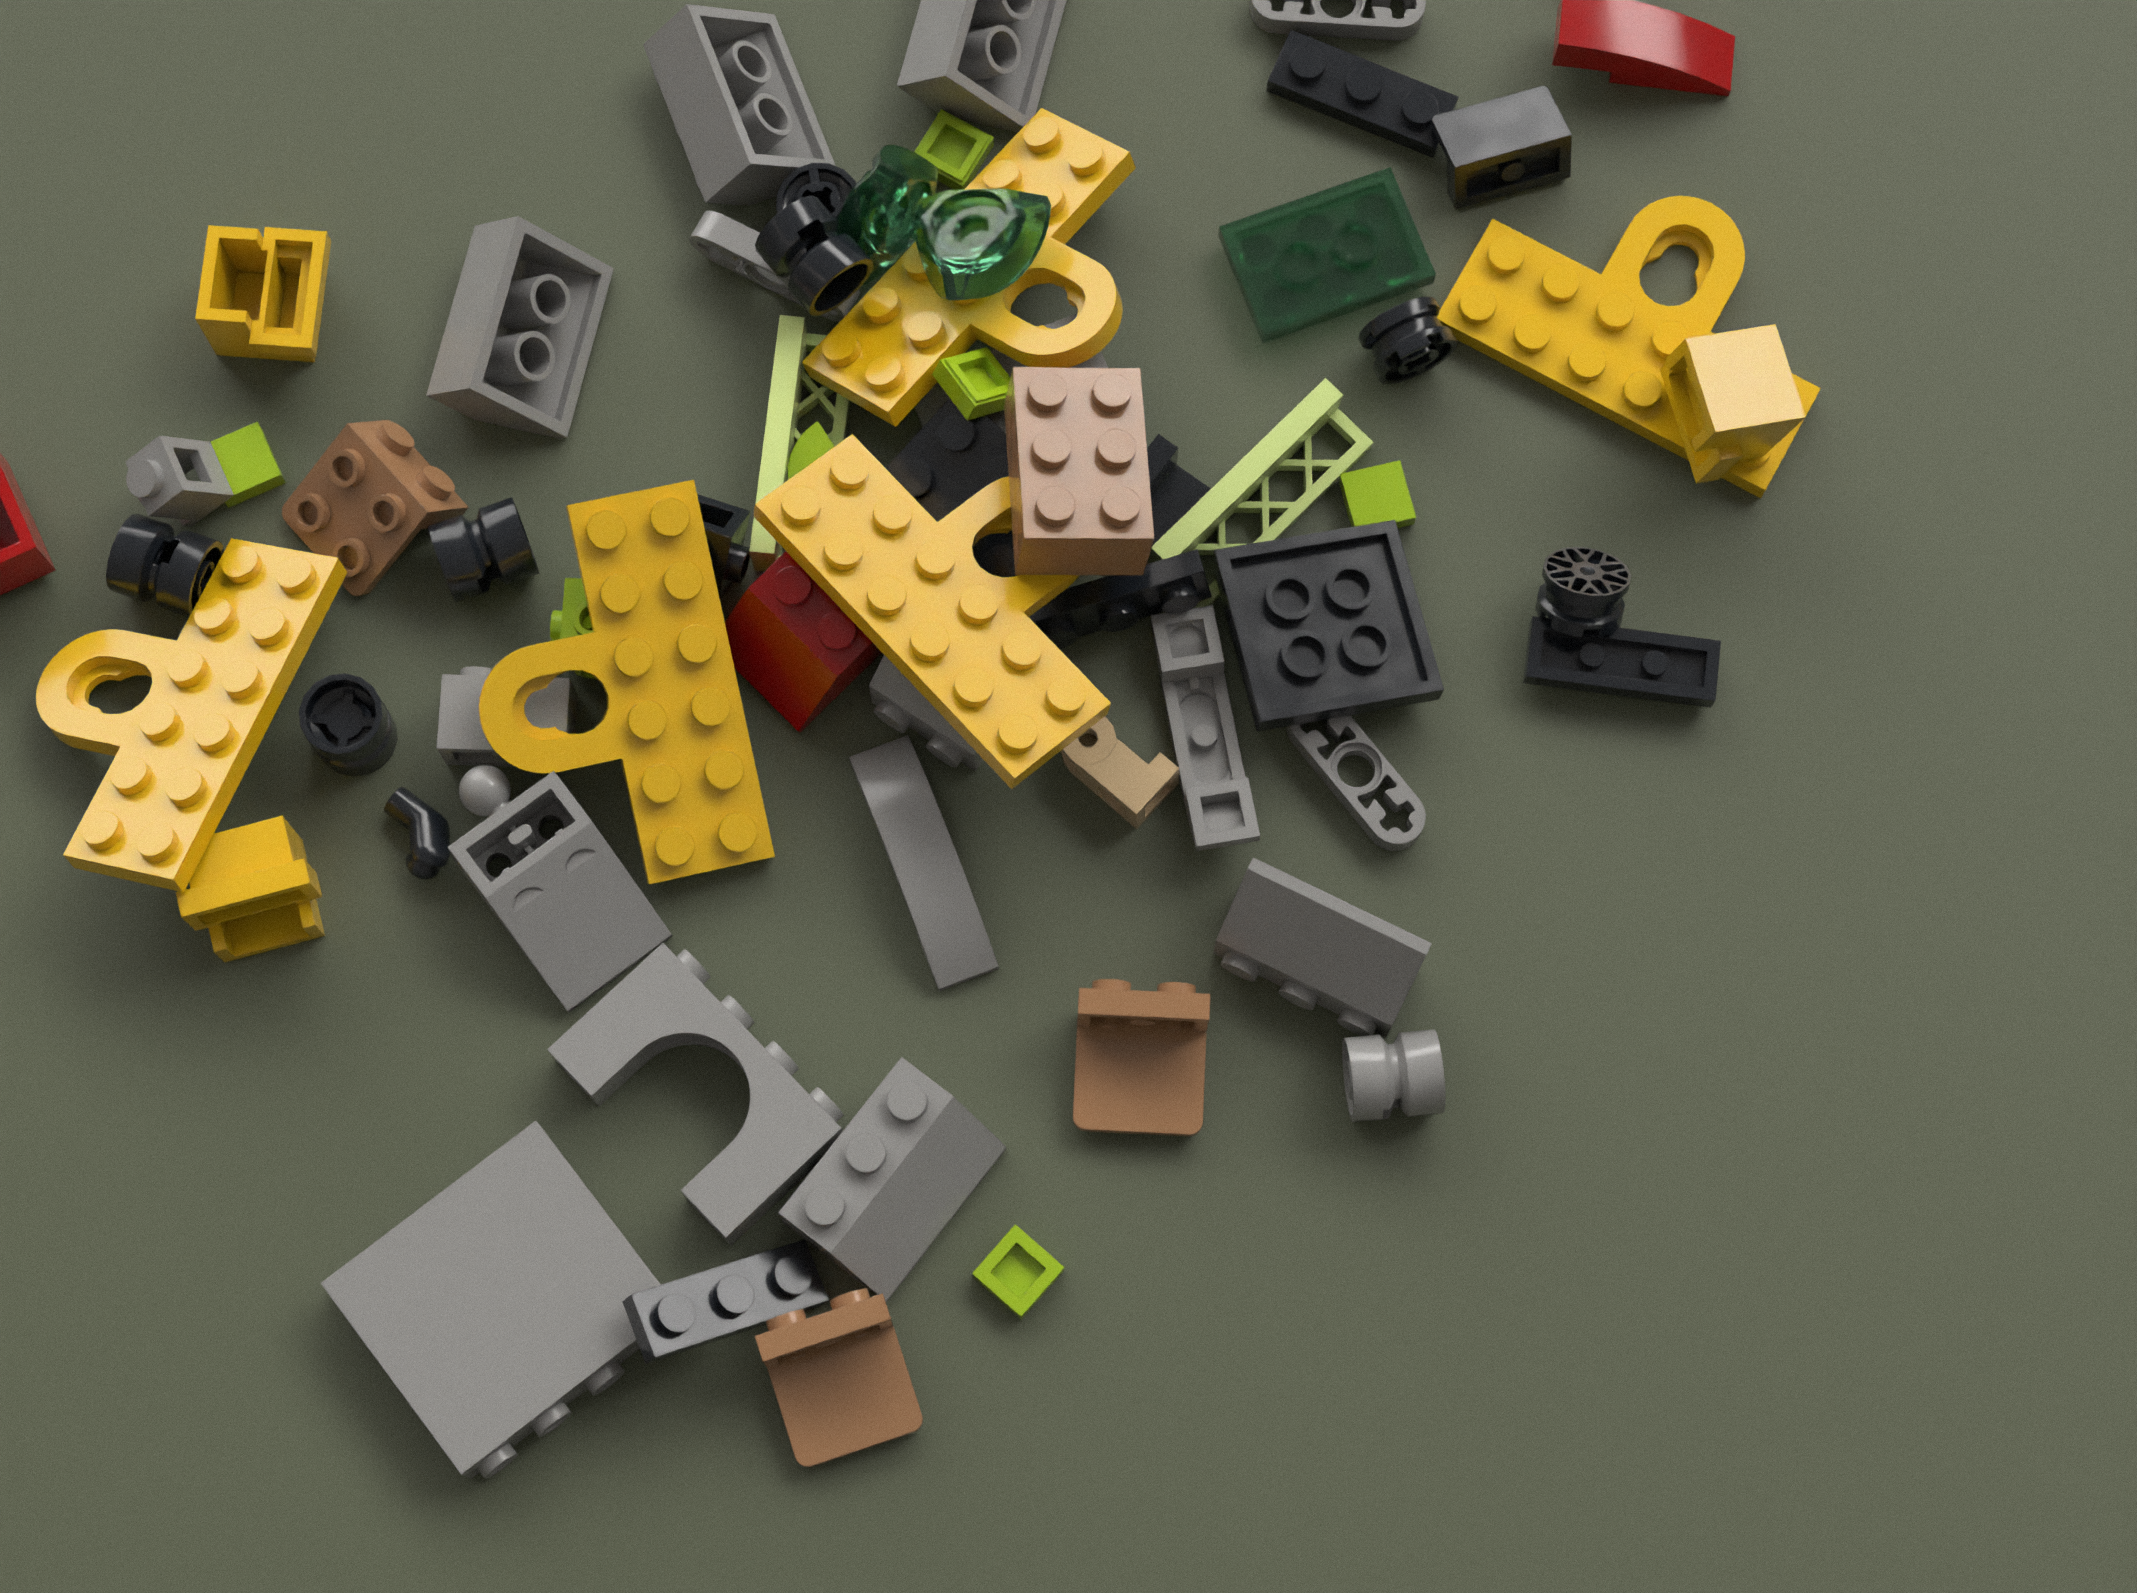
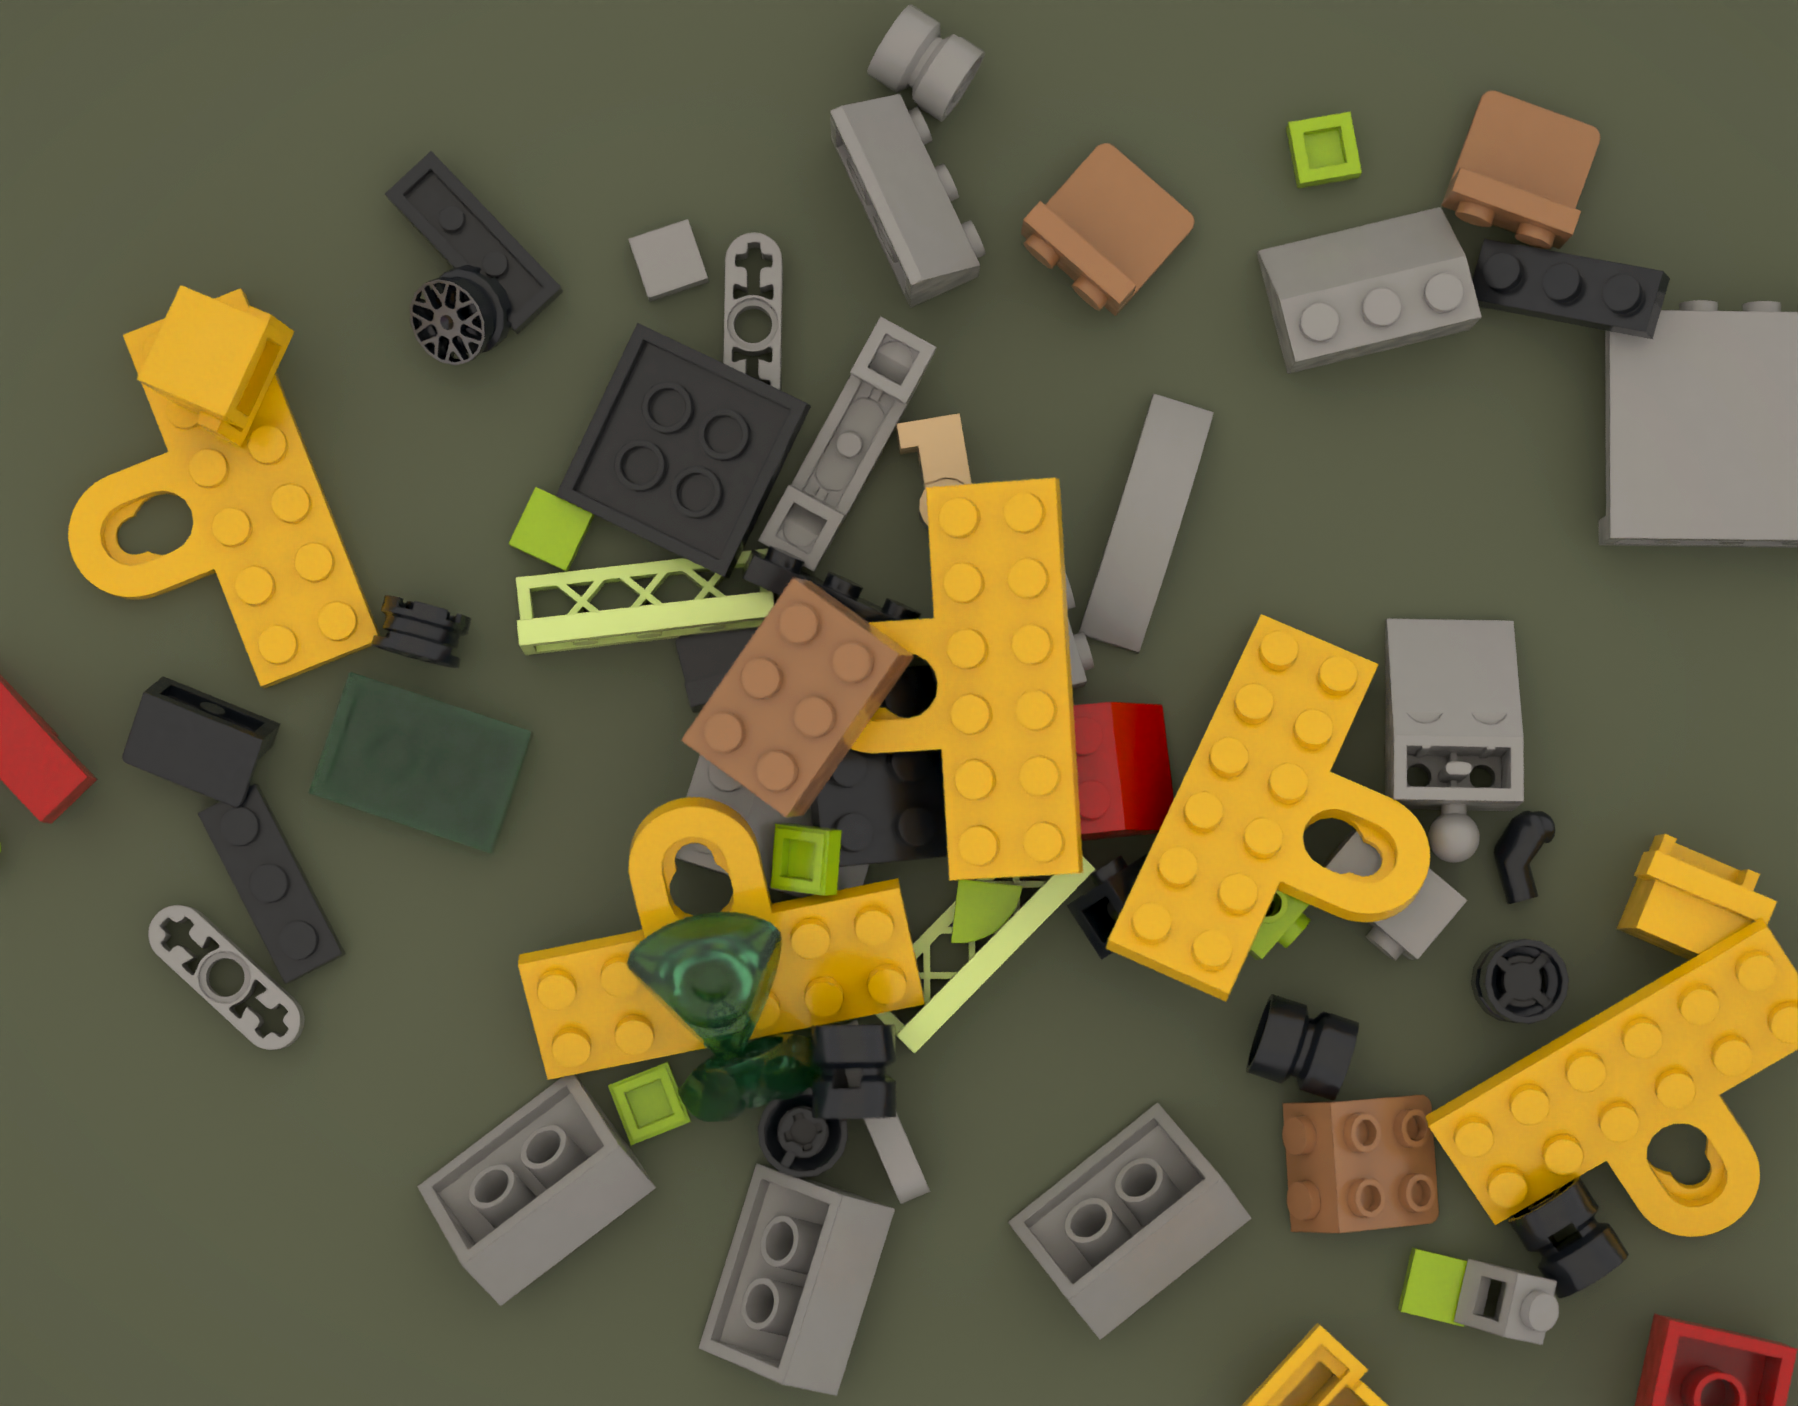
camera: 145 degrees left, 10 degrees up
(669, 1007) = (1433, 555): light grey arch -> none
(1463, 769) = (668, 260): none -> light grey tile

